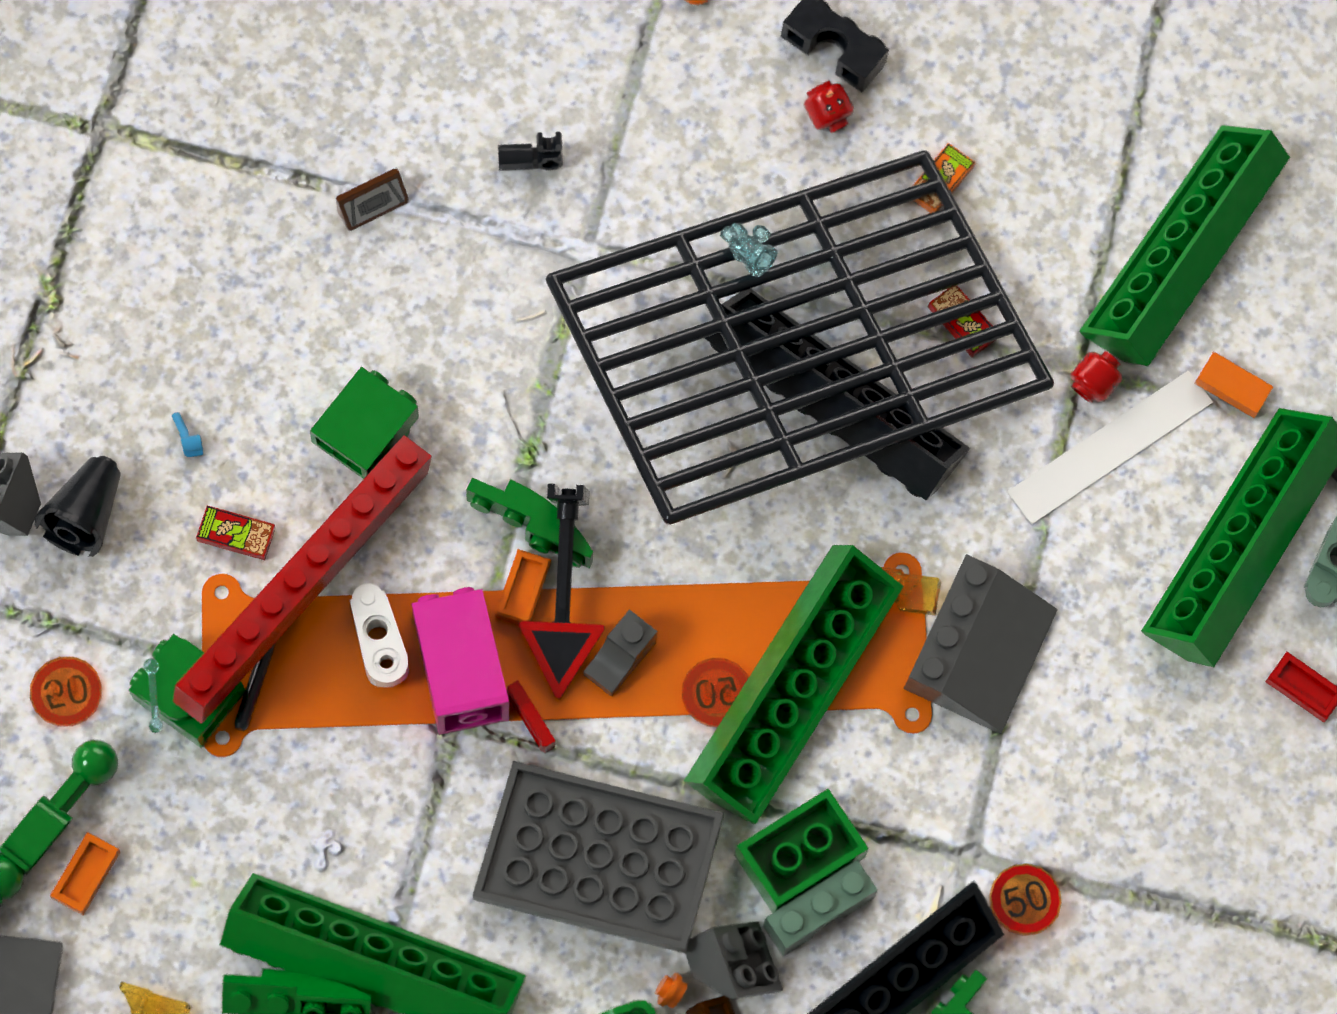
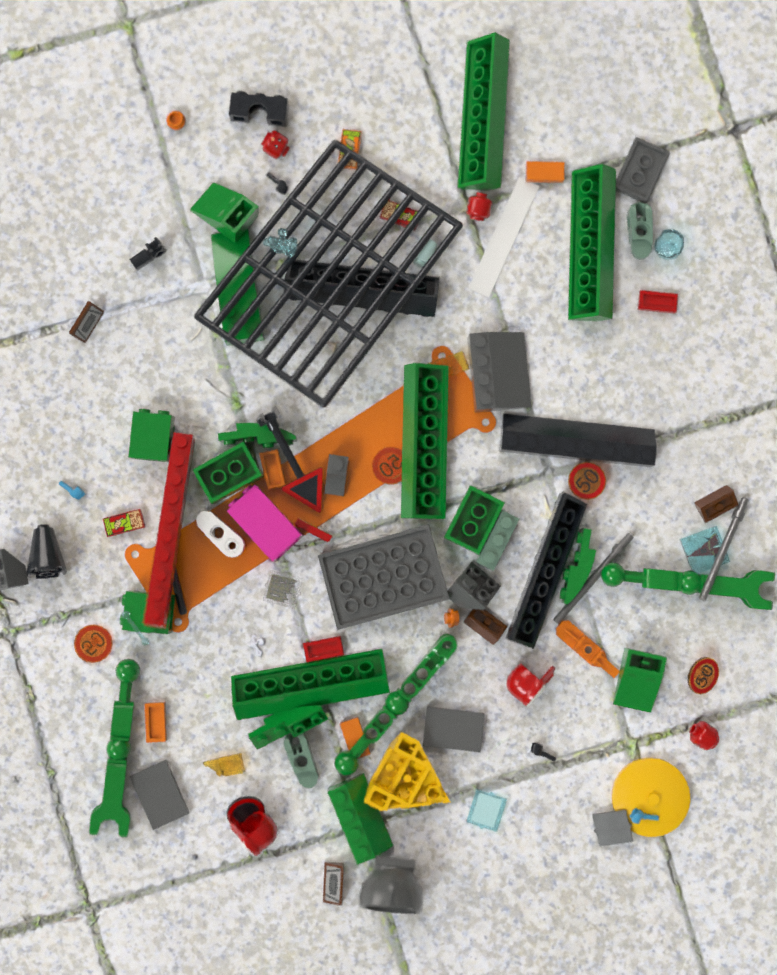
camera: 25 degrees left, 15 degrees up
(422, 785) = (282, 589): none -> clear piece
(430, 918) = (323, 649): none -> red tile
(450, 548) = (228, 473): none -> green brick
(652, 216) = (224, 257): none -> green slope
(692, 160) = (226, 211): none -> green slope
(801, 174) = (281, 185): none -> black hand
(967, 394) = (425, 253): none -> light aqua brick
(1046, 829) = (578, 440): none -> black slope

